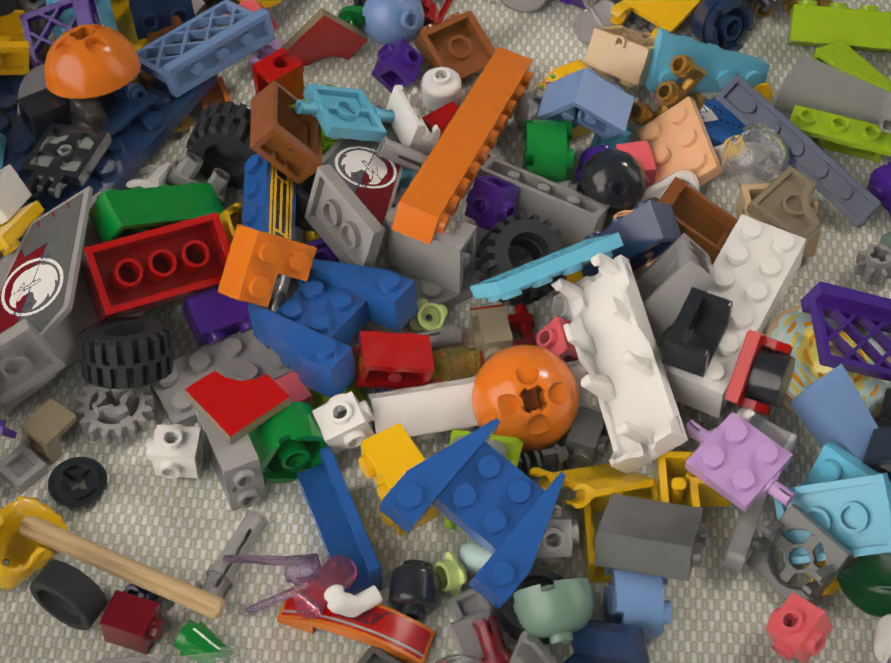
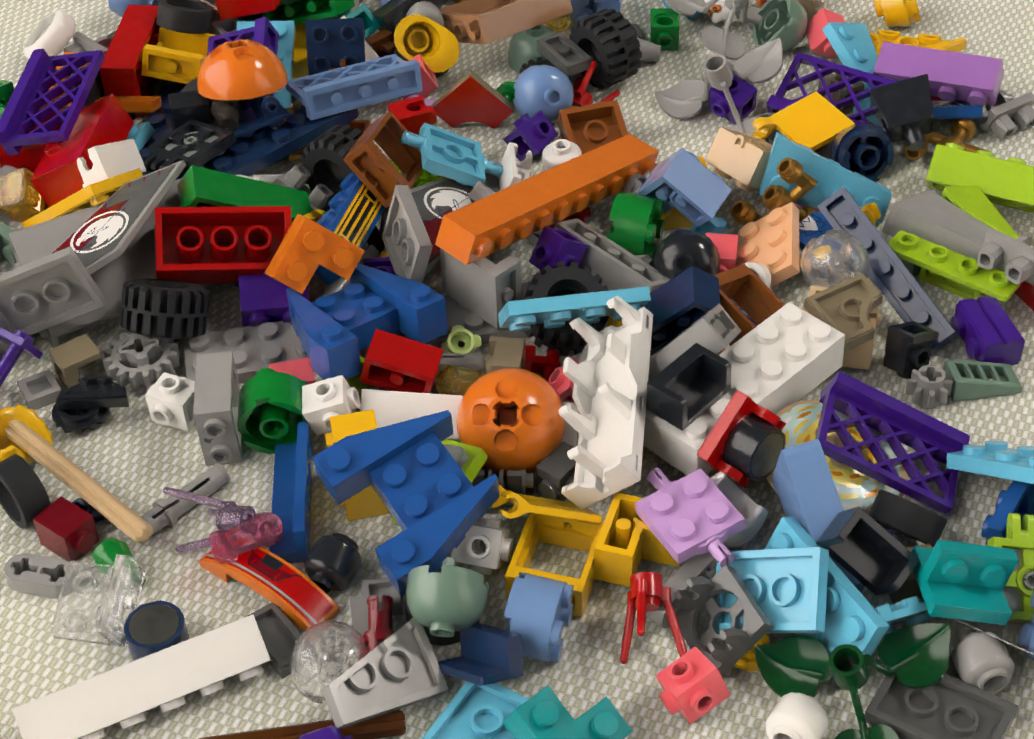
camera: 20 degrees right, 10 degrees down
(89, 462) = (93, 393): none -> black tile
(237, 405) = (230, 362): red tile -> none
(349, 604) = (259, 555): white arm -> none
(452, 573) = (369, 558): yellowish green plate -> none
(651, 537) = (564, 557): dark grey brick -> none
(727, 549) = (644, 596): none -> red plant
(847, 229) = (908, 347): none -> black brick

